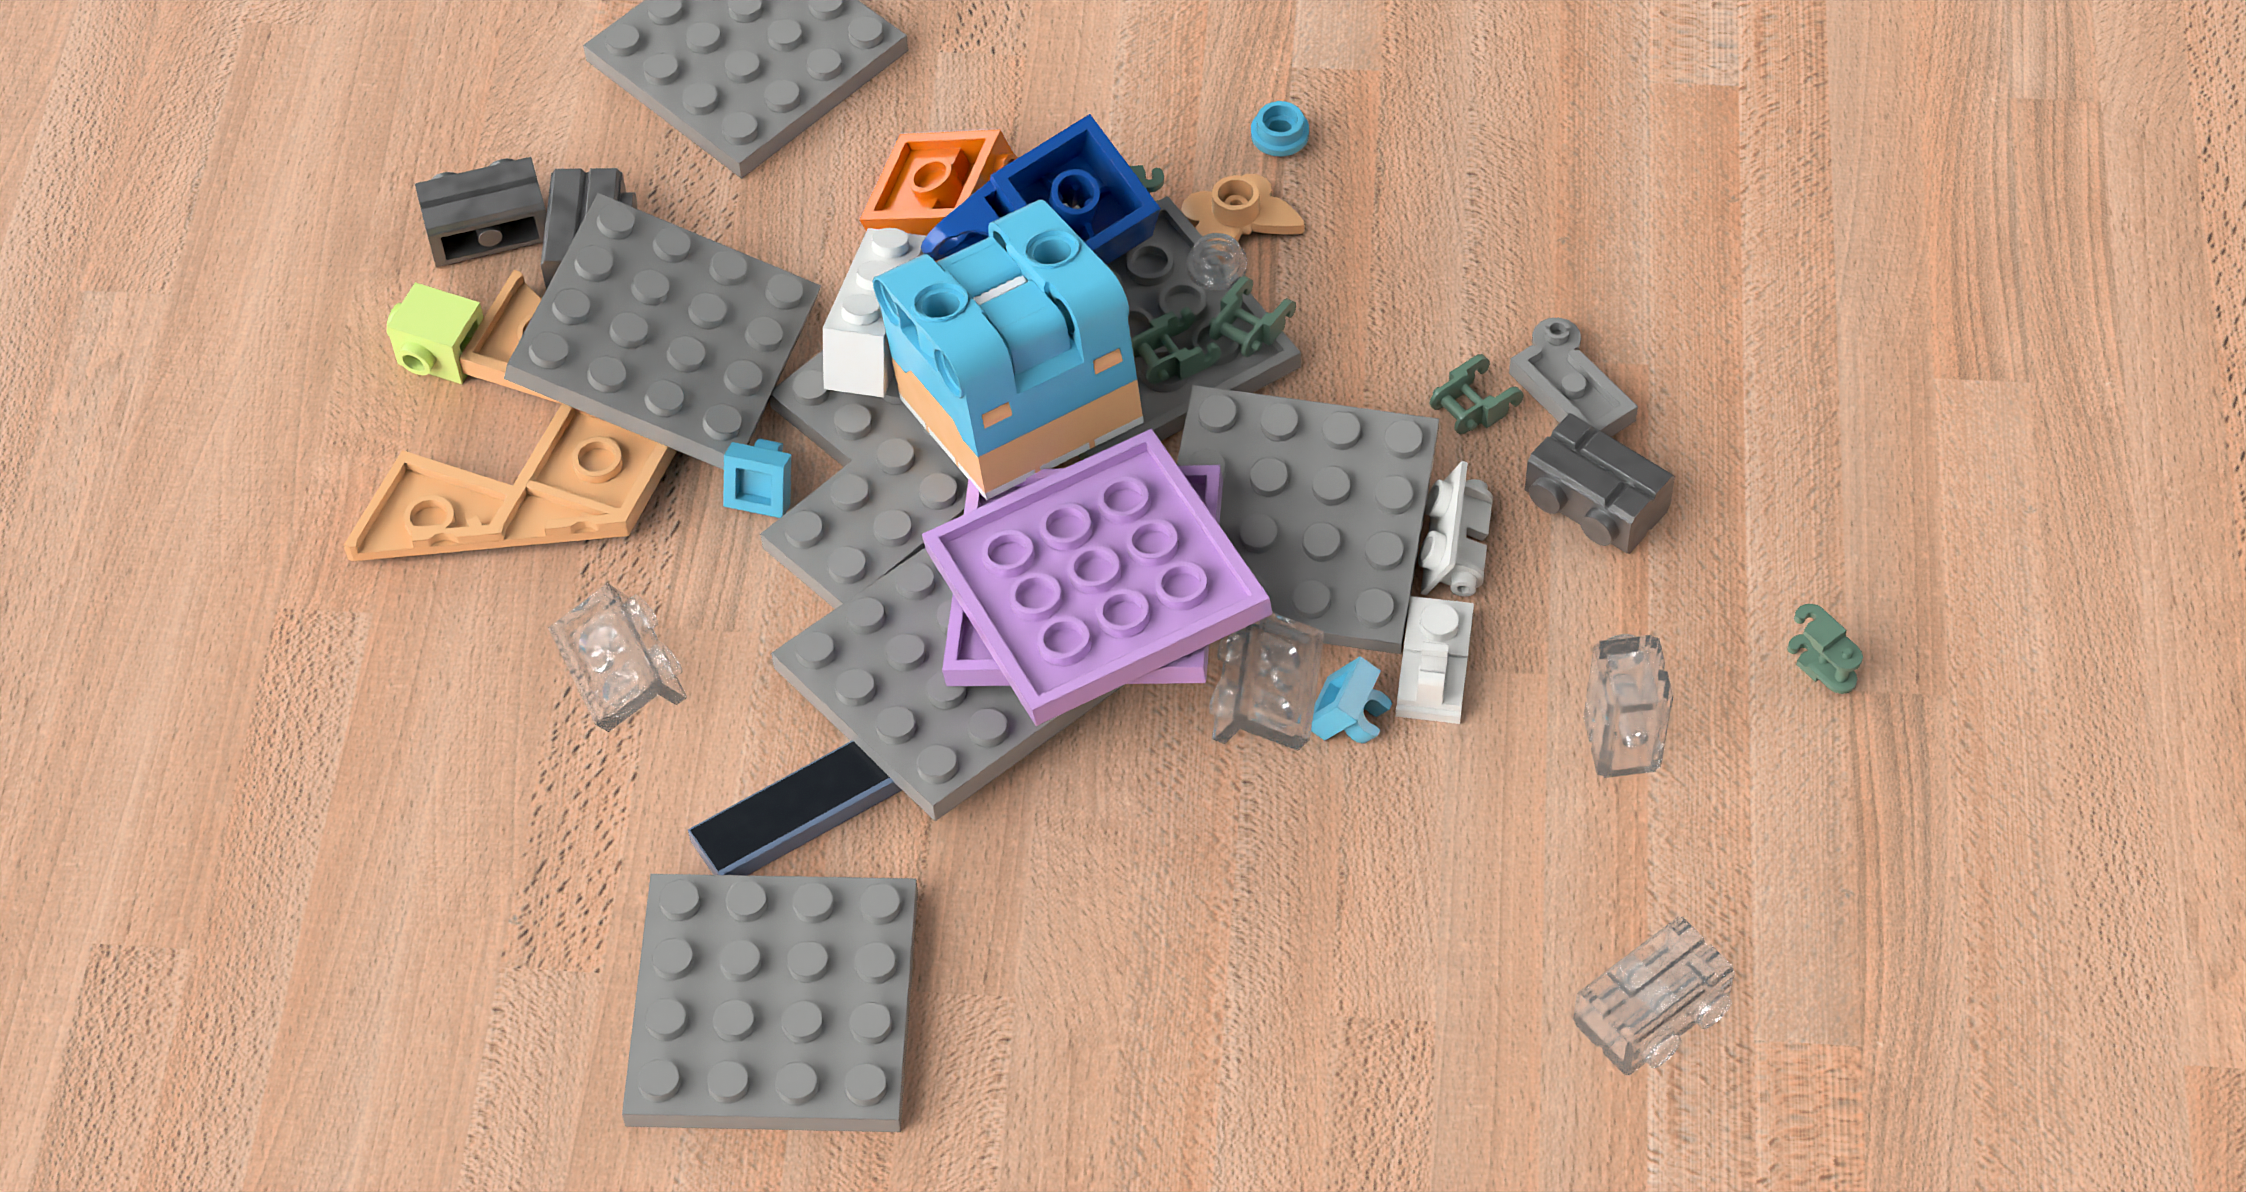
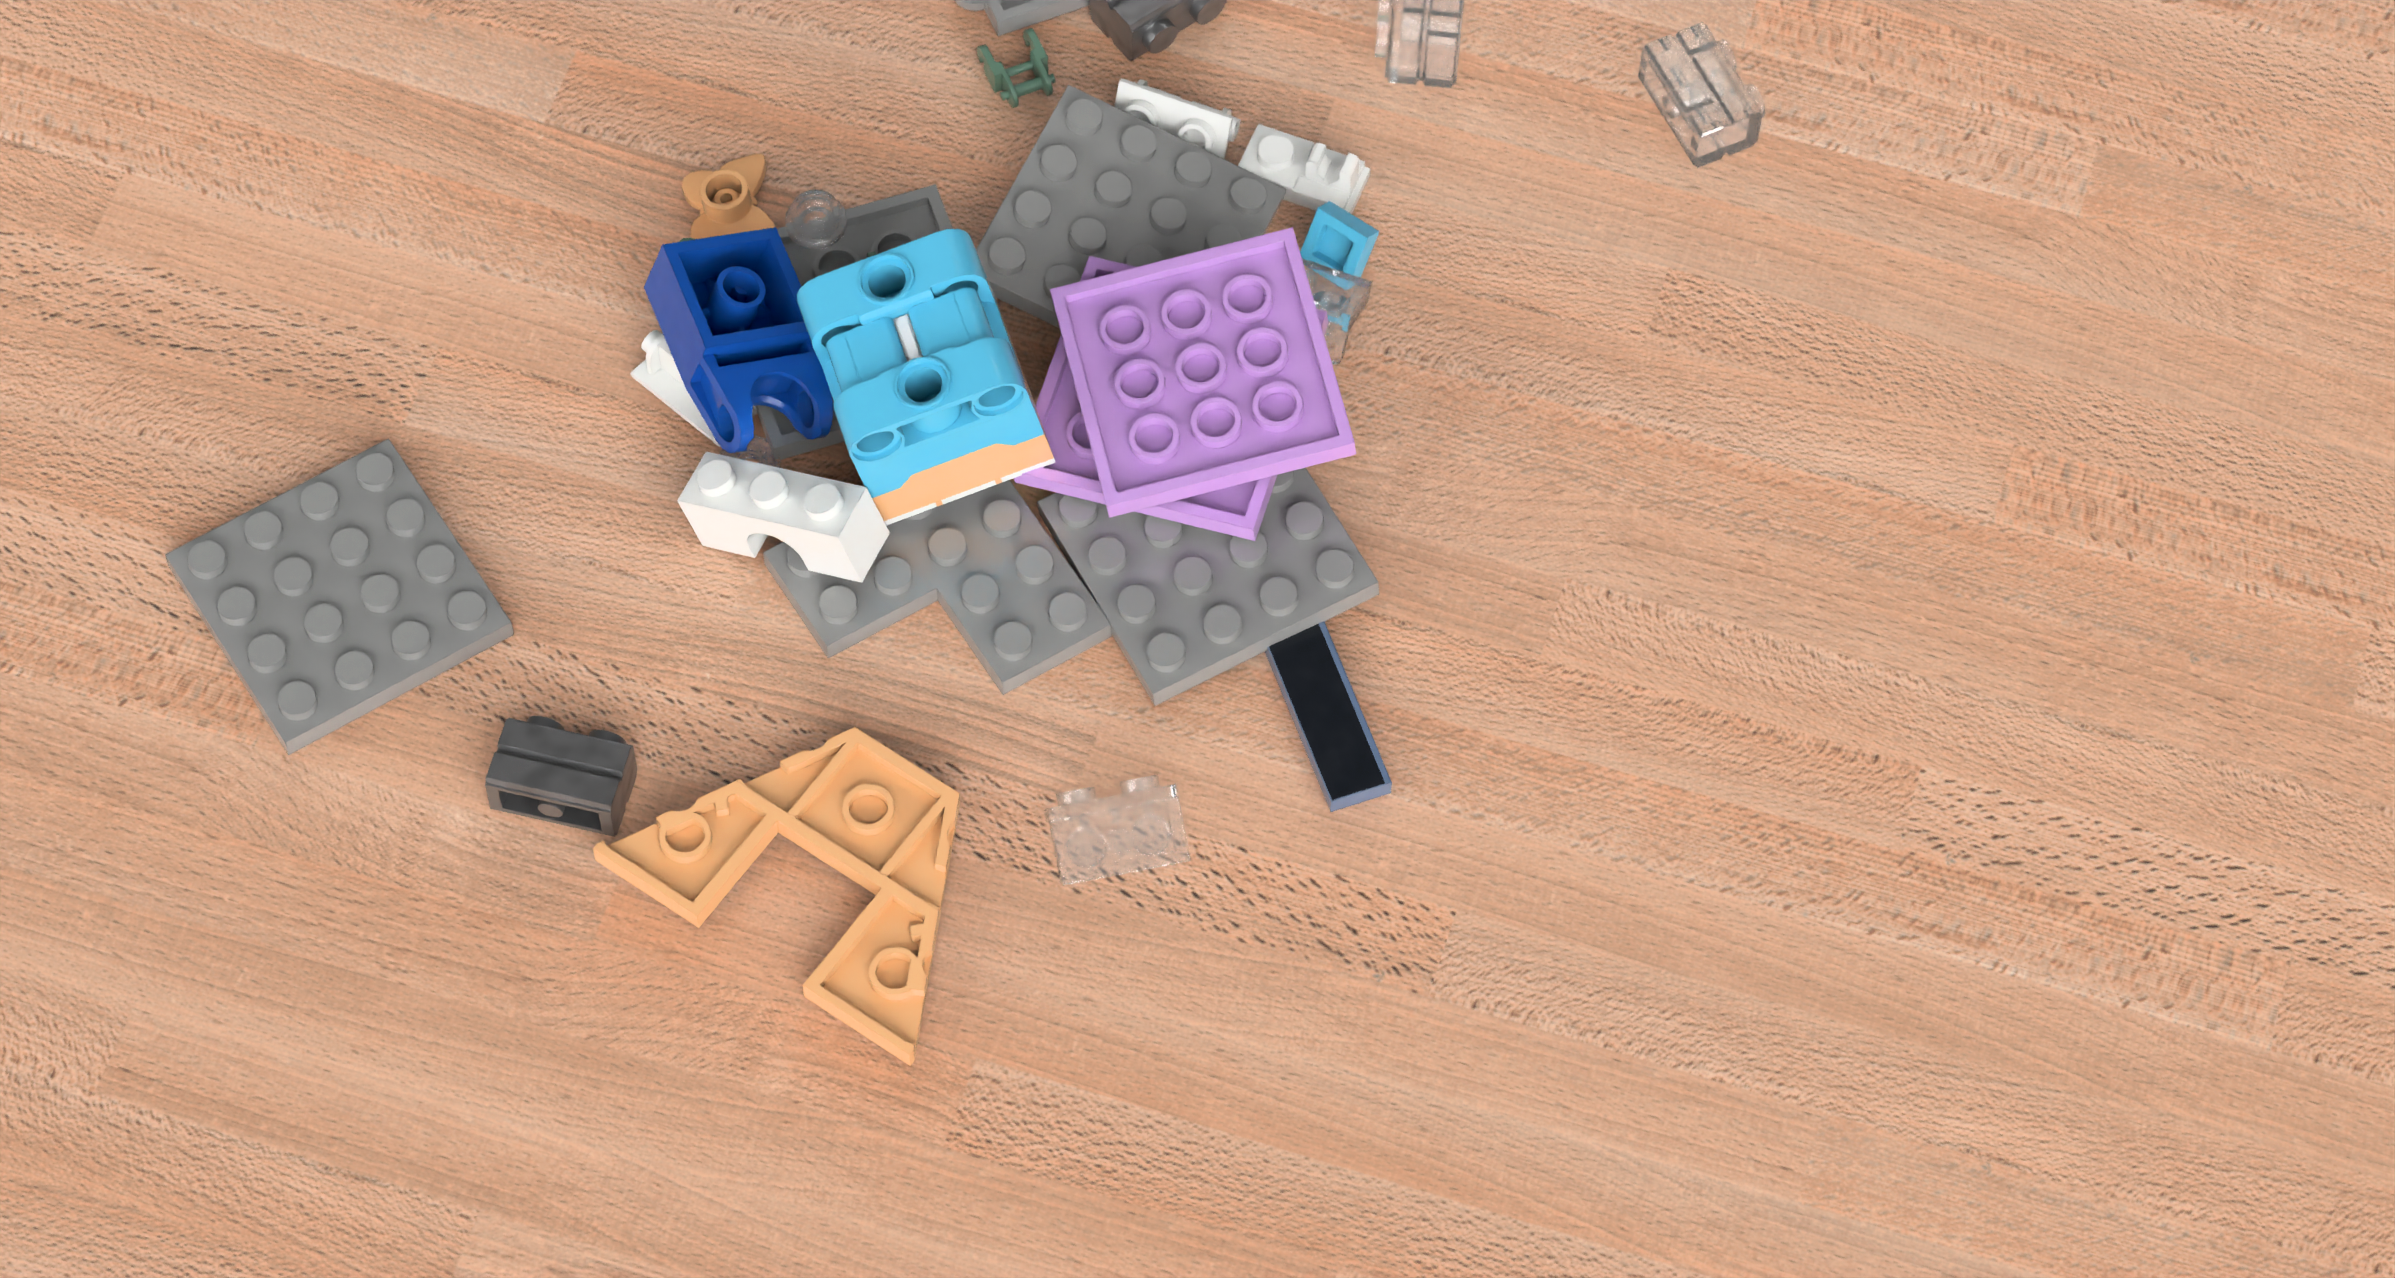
camera: 80 degrees left, 5 degrees up
(433, 331) = (651, 936): yellowish green brick -> none
(482, 211) = (494, 869): flat silver brick -> none
(662, 332) = (739, 712): light grey plate -> none
(757, 478) = (937, 668): medium azure tile -> none
(772, 1003) = (1529, 767): light grey plate -> none
(932, 177) = (619, 441): orange plate -> none
(1265, 329) = (876, 222): sand green piece -> none
(1280, 129) = (636, 131): medium azure plate -> none

